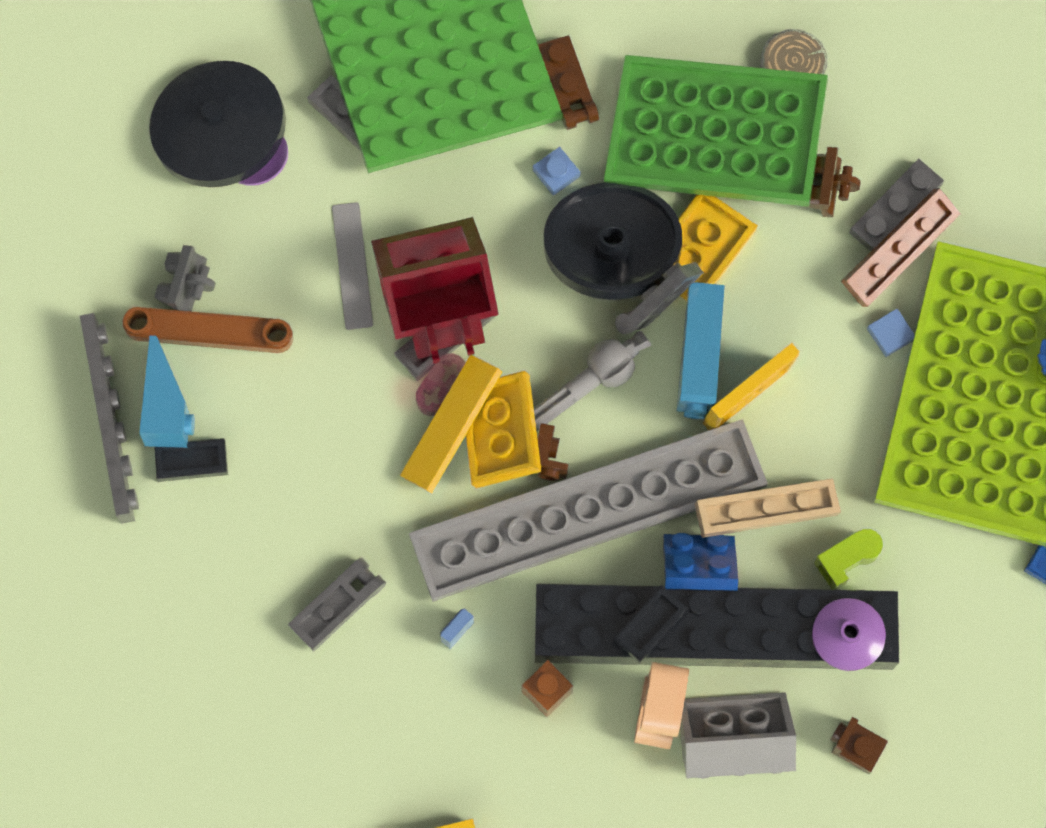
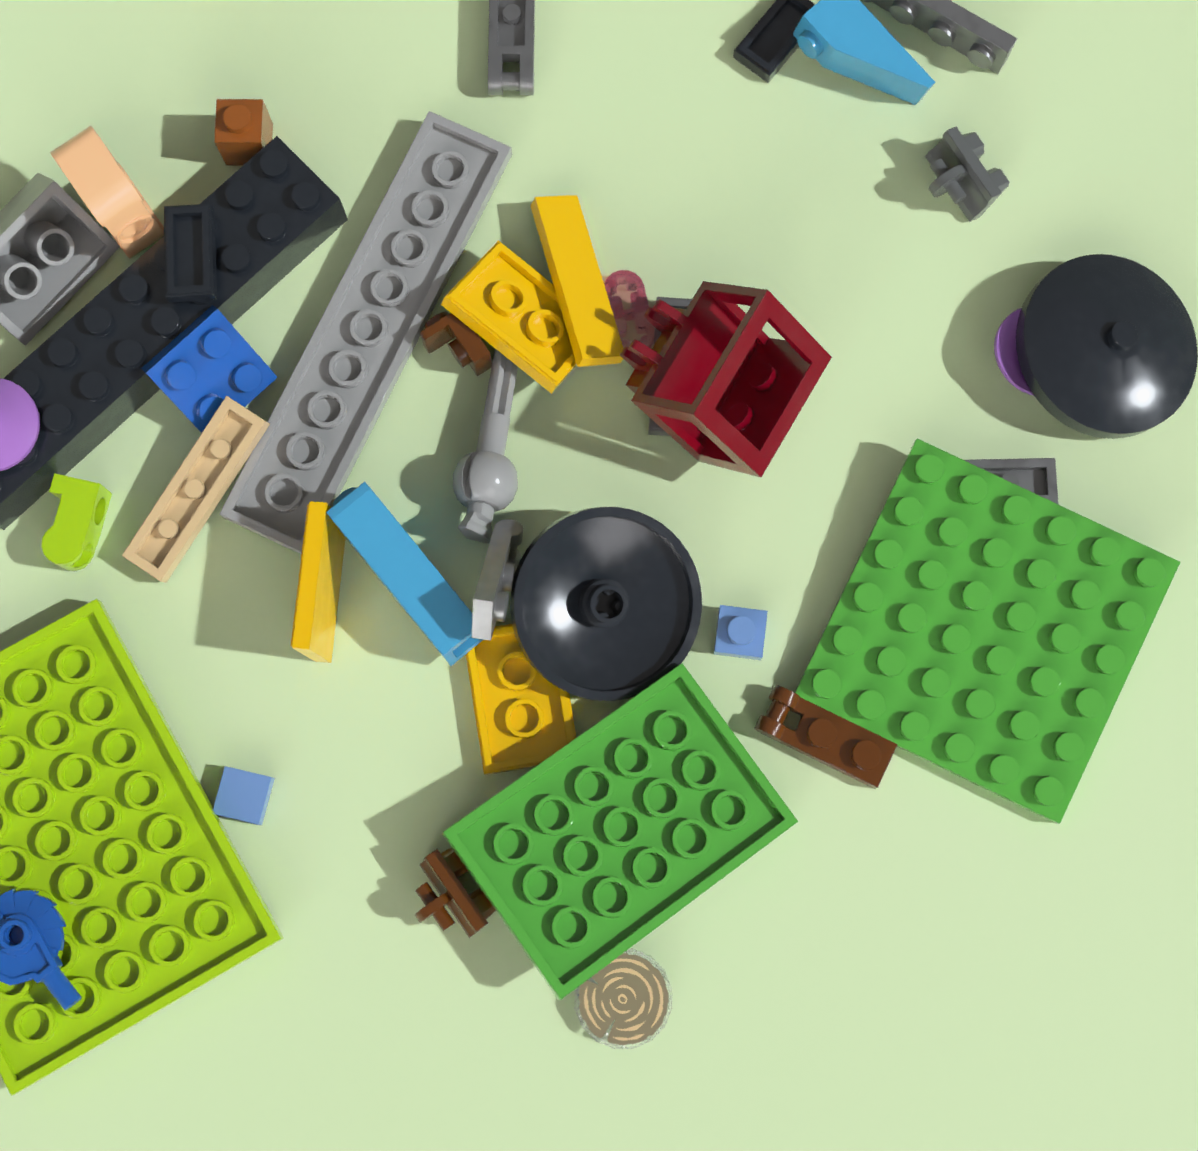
camera: 135 degrees right, 5 degrees up
(208, 329) = (892, 152): dark orange piece -> none
(352, 266) = (850, 359): light grey sticker -> none
(456, 628) = (381, 109): medium blue tile -> none
(895, 204) = (363, 942): flat silver plate -> none
(900, 247) = (314, 896): plate -> none

